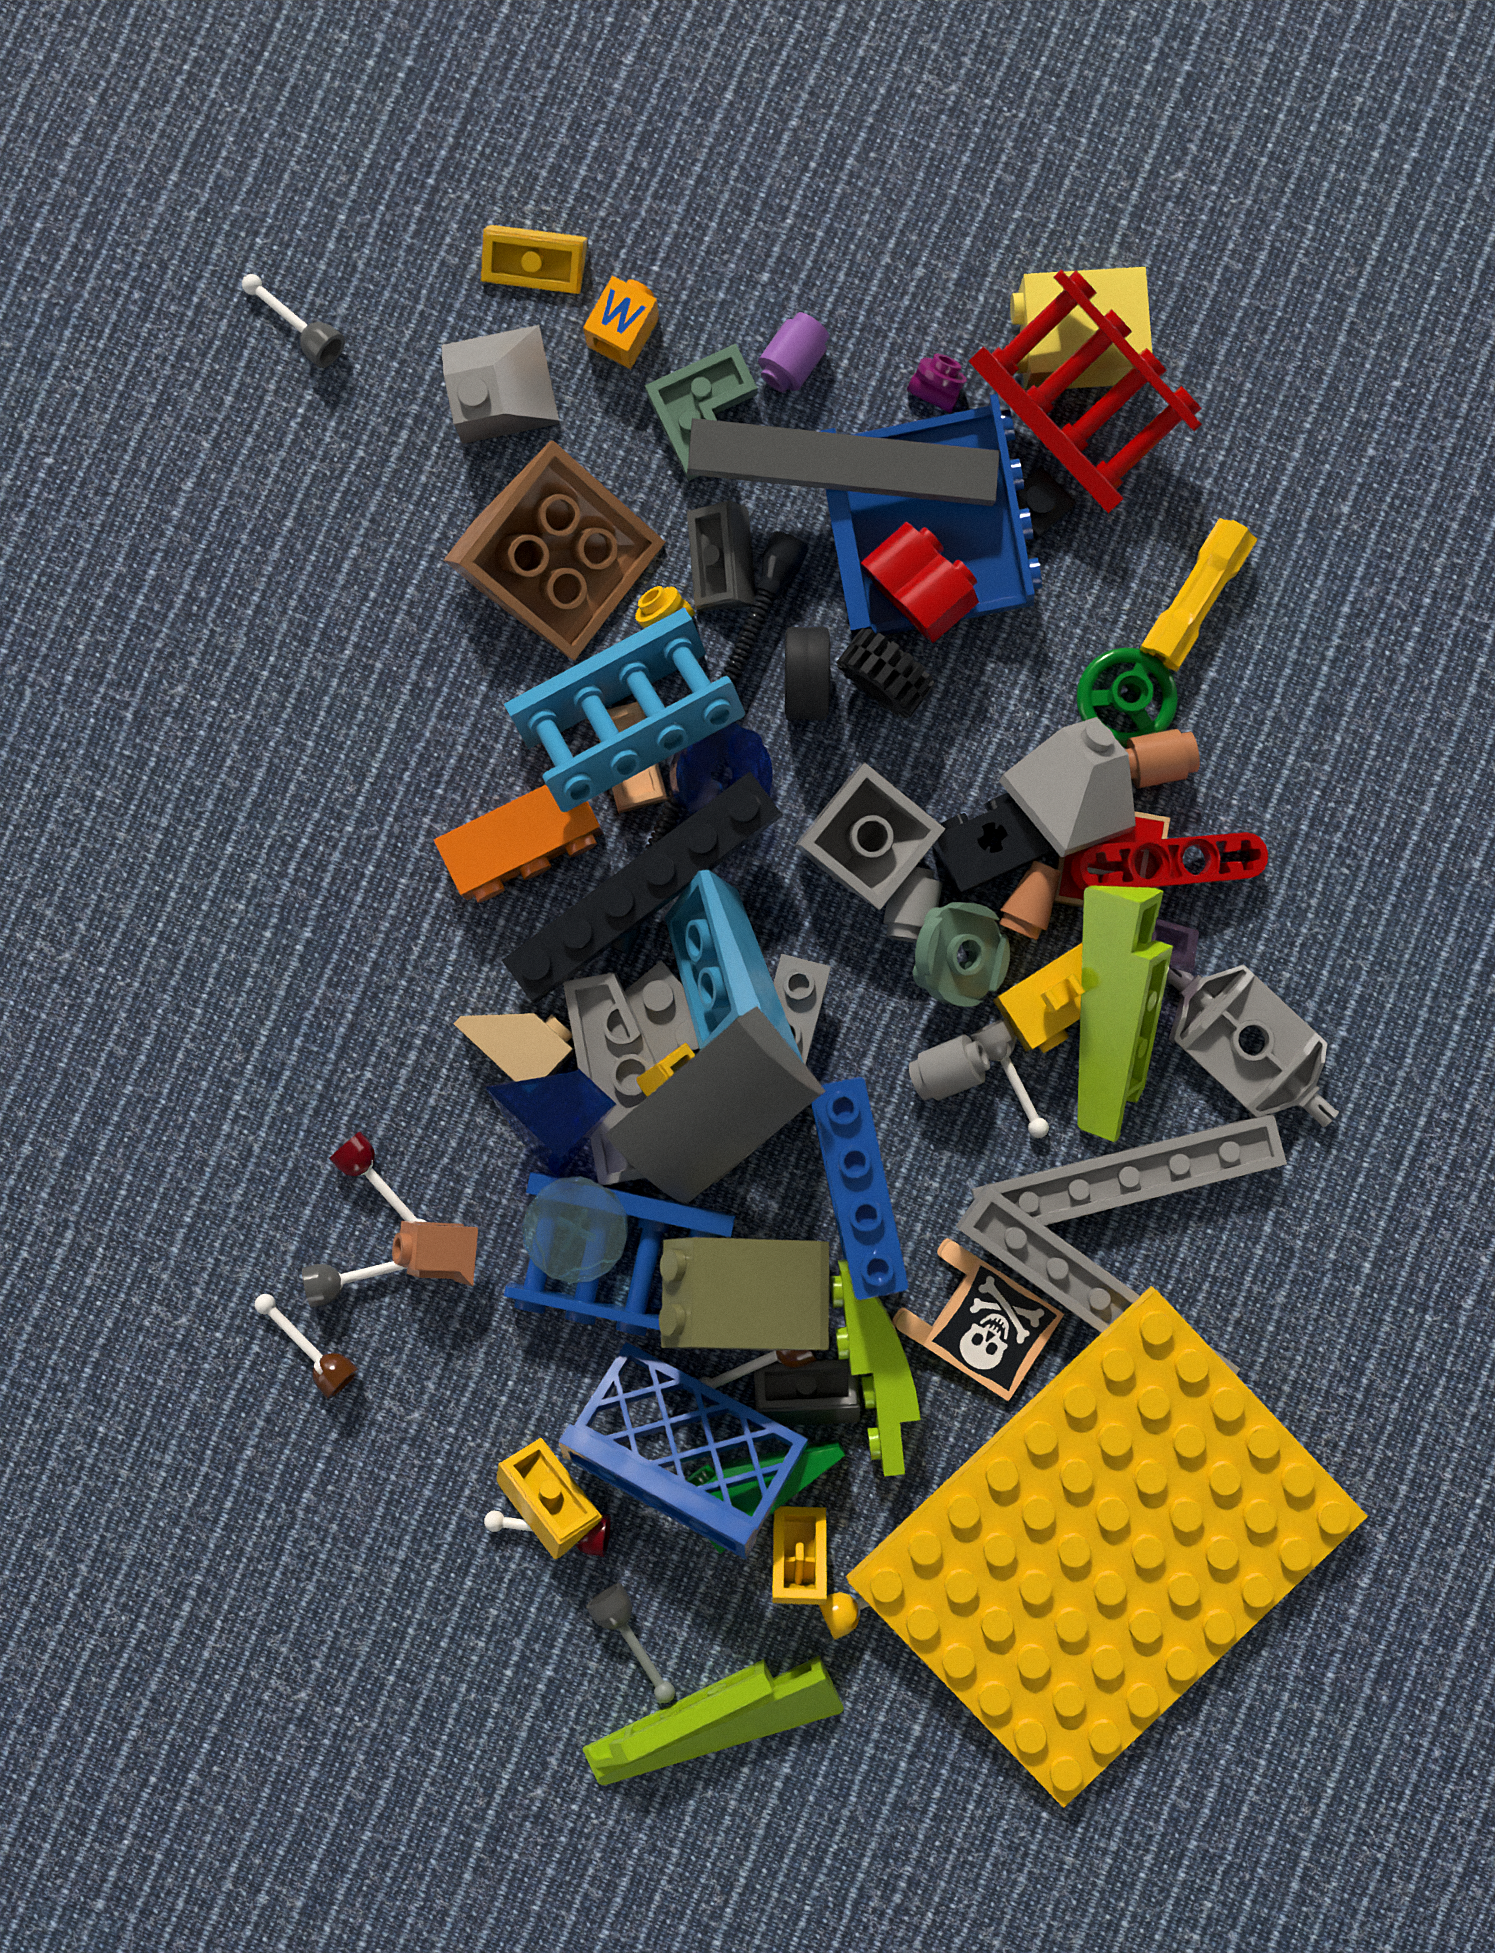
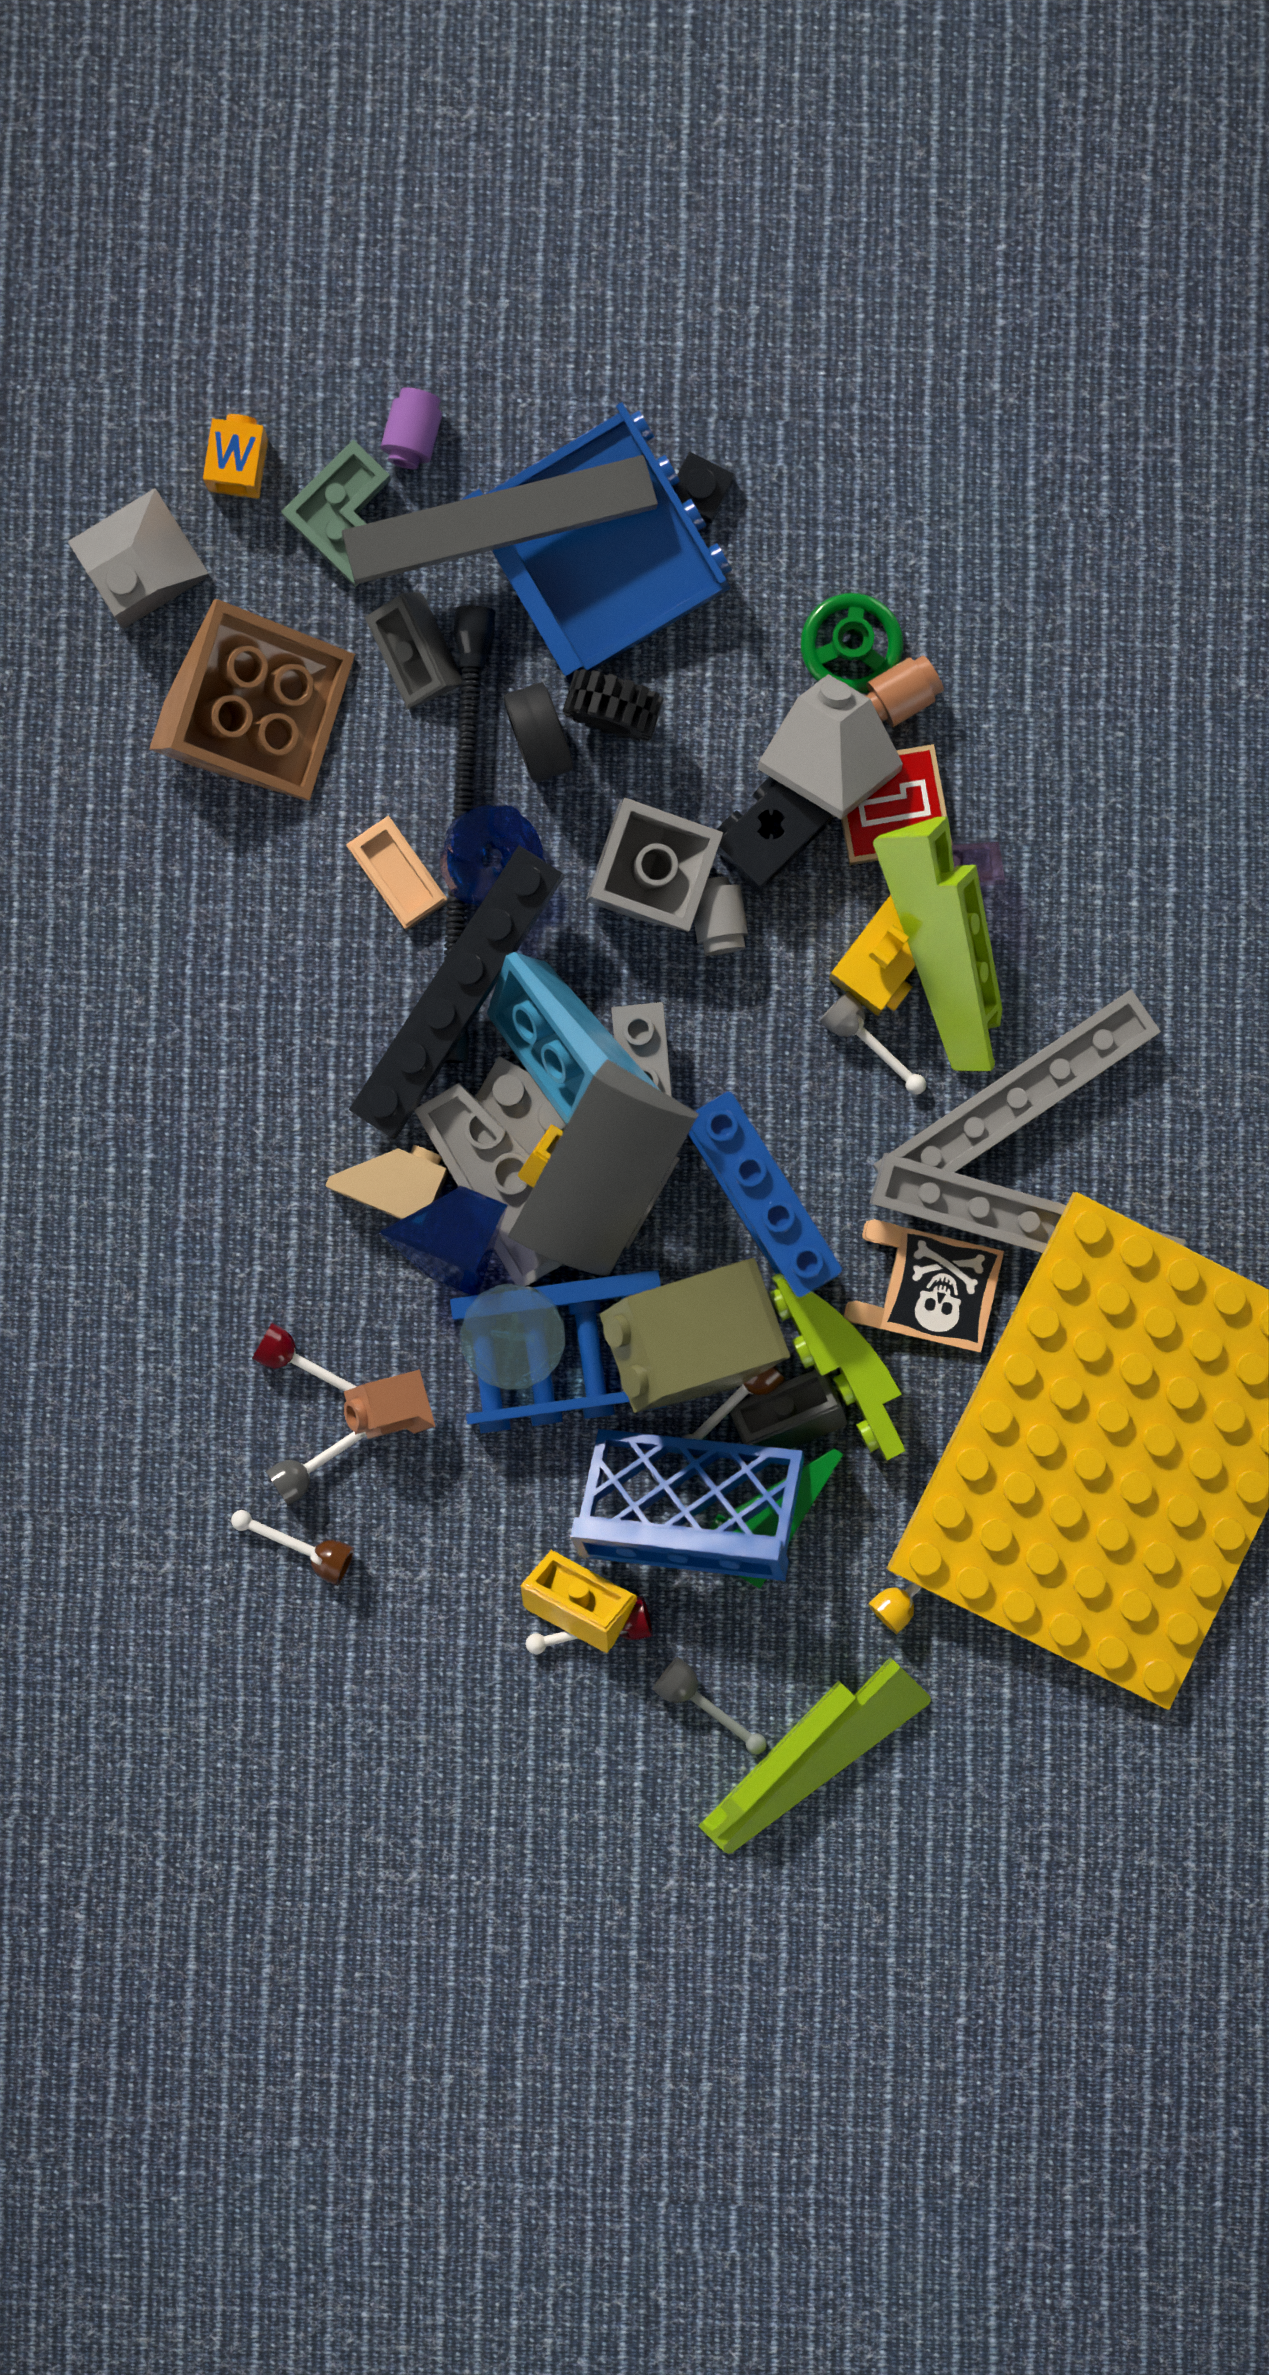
camera: 20 degrees left, 0 degrees up
(515, 842) = (322, 988): orange brick -> none
(533, 259) = (125, 425): yellow slope -> none
(608, 678) = (347, 808): dark azure fence -> none
(658, 604) = (377, 724): yellow plate -> none
(799, 1556) = (834, 1564): yellow slope -> none
(921, 581) = (615, 605): red brick -> none
(937, 950) = (757, 948): sand green plate -> none
(938, 381) = (561, 405): magenta plate -> none
(949, 1068) = (810, 1058): light grey brick -> none
(1032, 901) = (831, 871): nougat cone -> none
(1036, 402) = (662, 396): red fence -> none
(1117, 289) = (680, 305): light yellow brick -> none
(1170, 861) = (947, 785): red beam -> none
(1208, 1029) = (1042, 933): light grey plate -> none
(1216, 564) = (891, 484): yellow axle -> none

